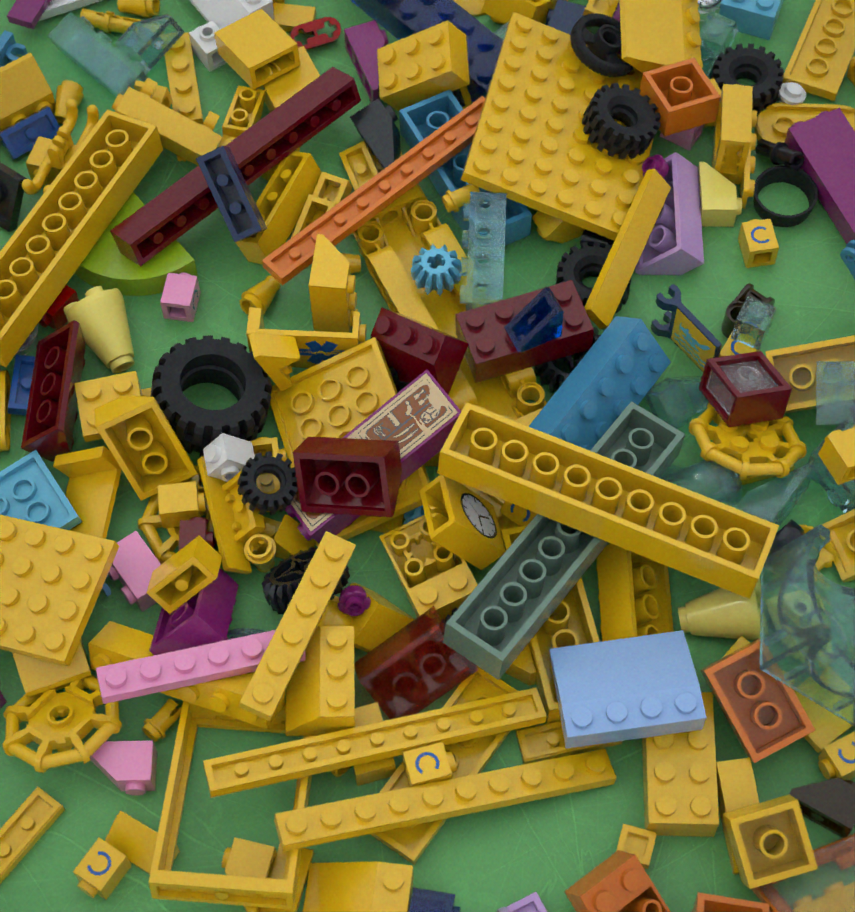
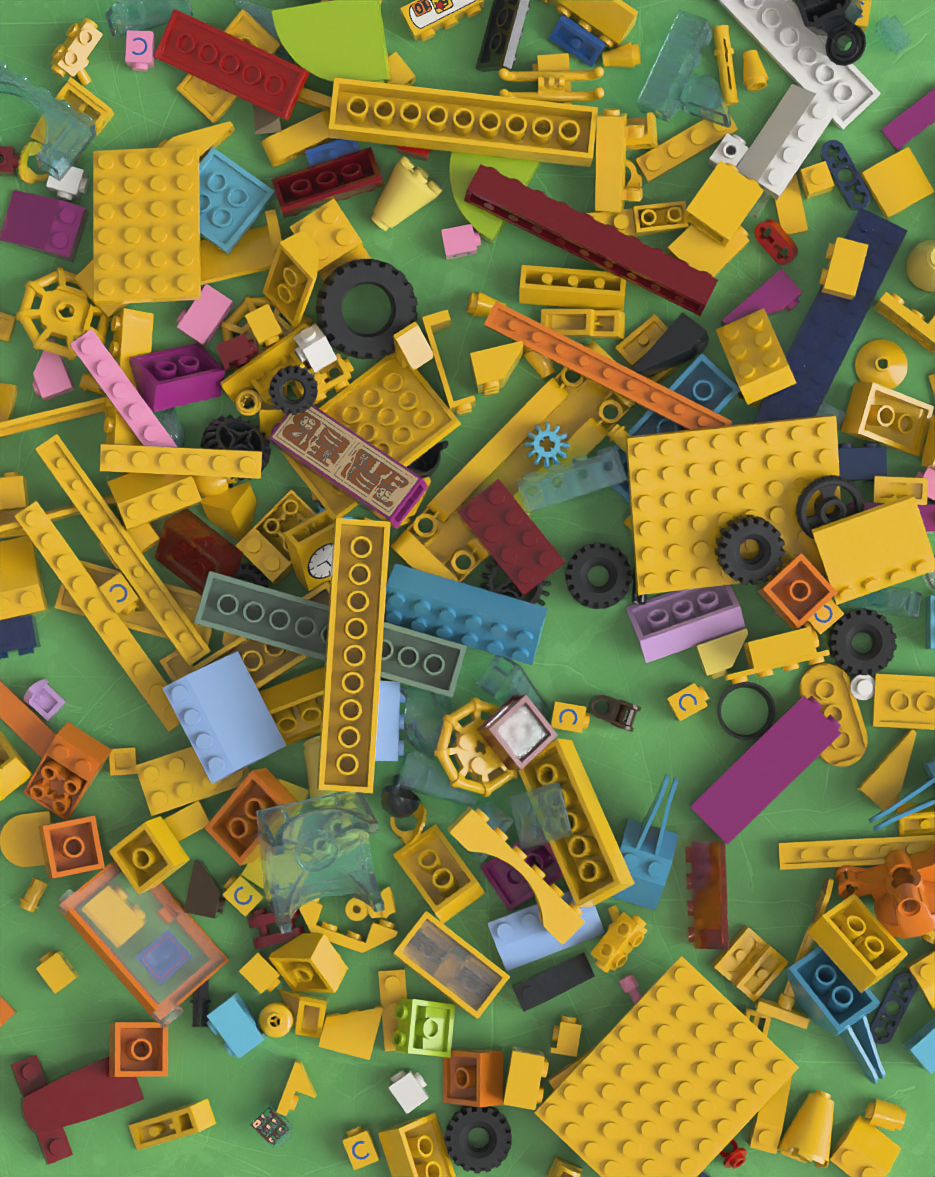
camera: 75 degrees right, 25 degrees up
(184, 574) = (197, 357): yellow brick -> none
(231, 193) = (541, 252): dark blue brick -> none
(348, 476) = (316, 450): dark red slope -> none
(353, 600) = (226, 491): magenta plate -> none
(418, 347) = (465, 459): dark red slope -> none
(537, 322) = (500, 547): clear blue slope -> none
(627, 249) = (625, 596): yellow tile -> none
(656, 162) = (721, 593): magenta plate -> none
(685, 329) = (576, 653): flag -> none
(753, 322) = (585, 721): clear light blue brick -> none
(780, 154) = (785, 694): black axle -> none

